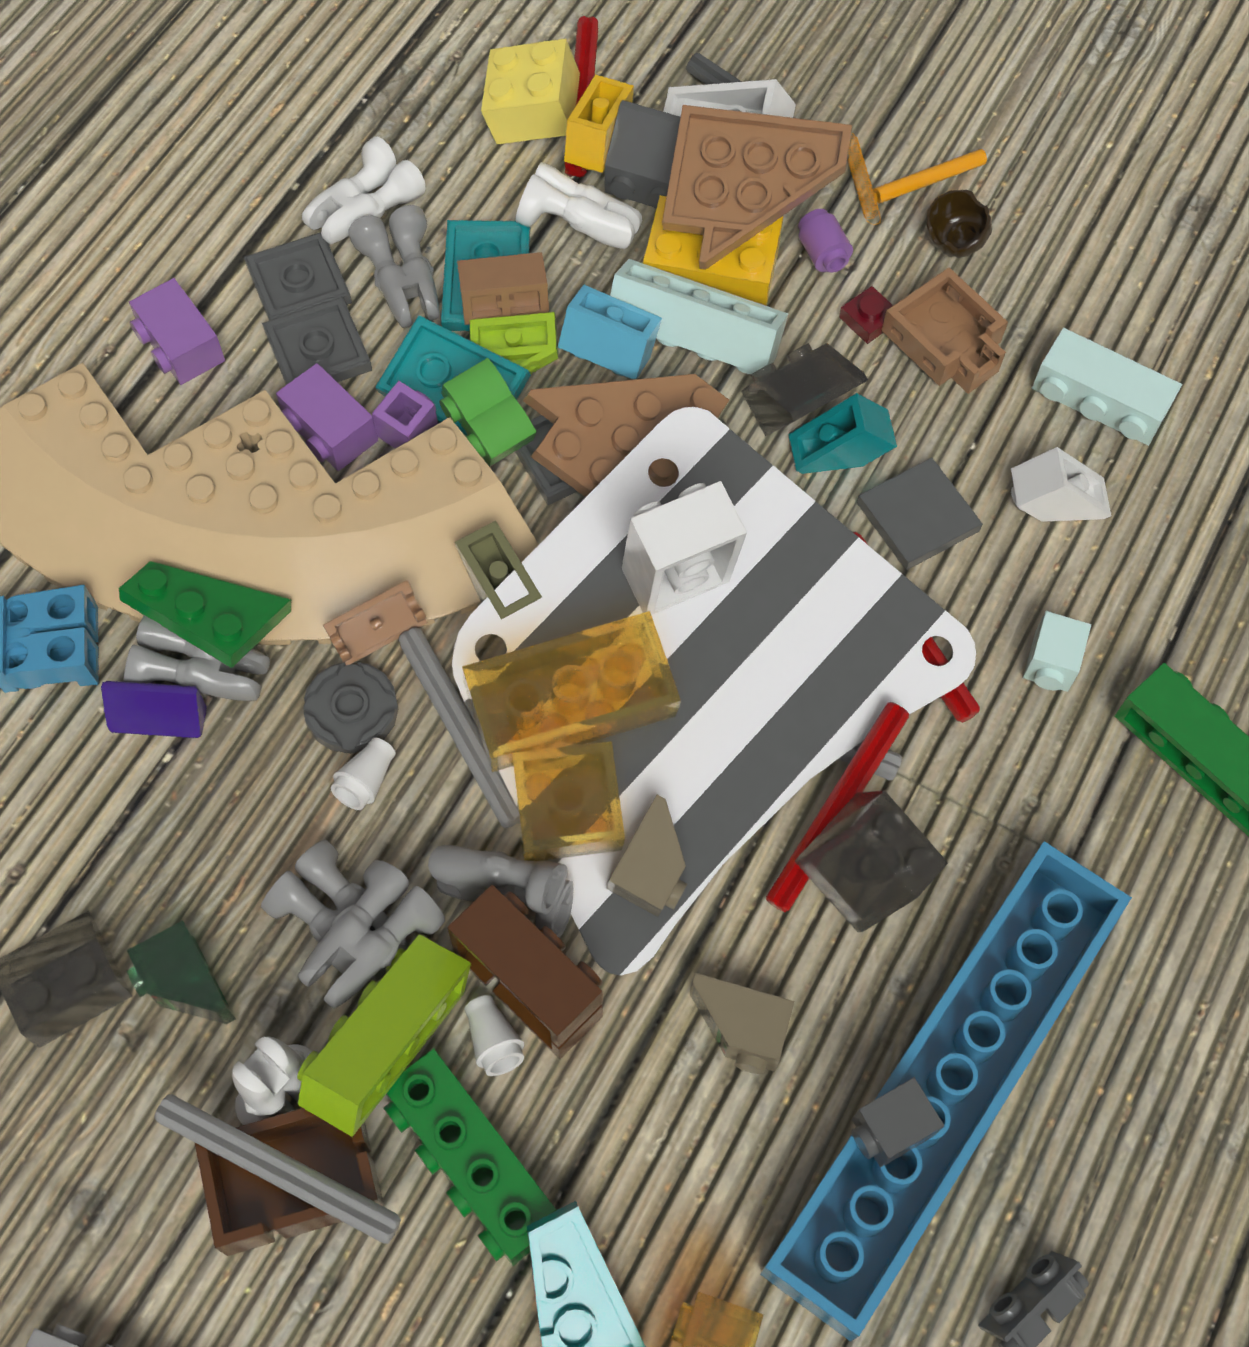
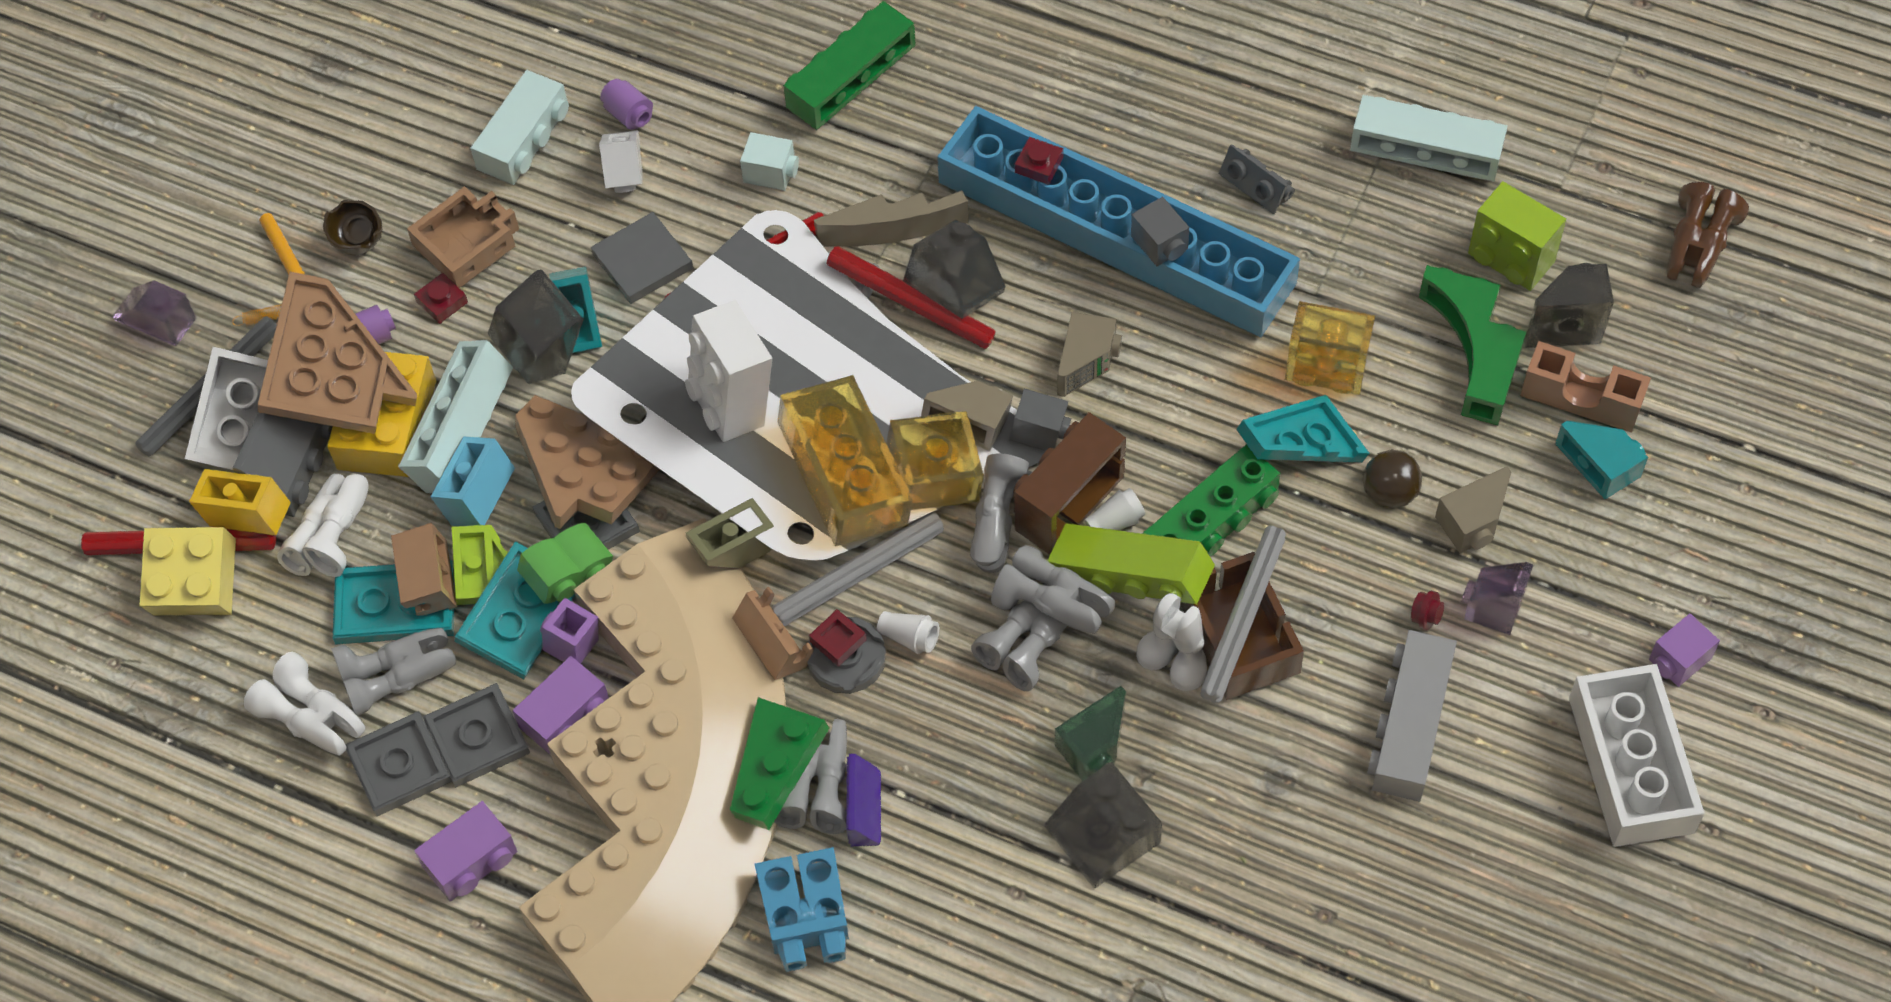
camera: 90 degrees left, 5 degrees down
(355, 688) = (837, 637): none -> dark red plate
(637, 951) = (1040, 420): none -> dark grey brick
(855, 66) = (157, 312): none -> slope
(961, 780) = (880, 223): none -> dark tan slope
(1031, 971) = (1039, 160): none -> dark red plate
(1144, 498) = (626, 103): none -> medium lavender brick

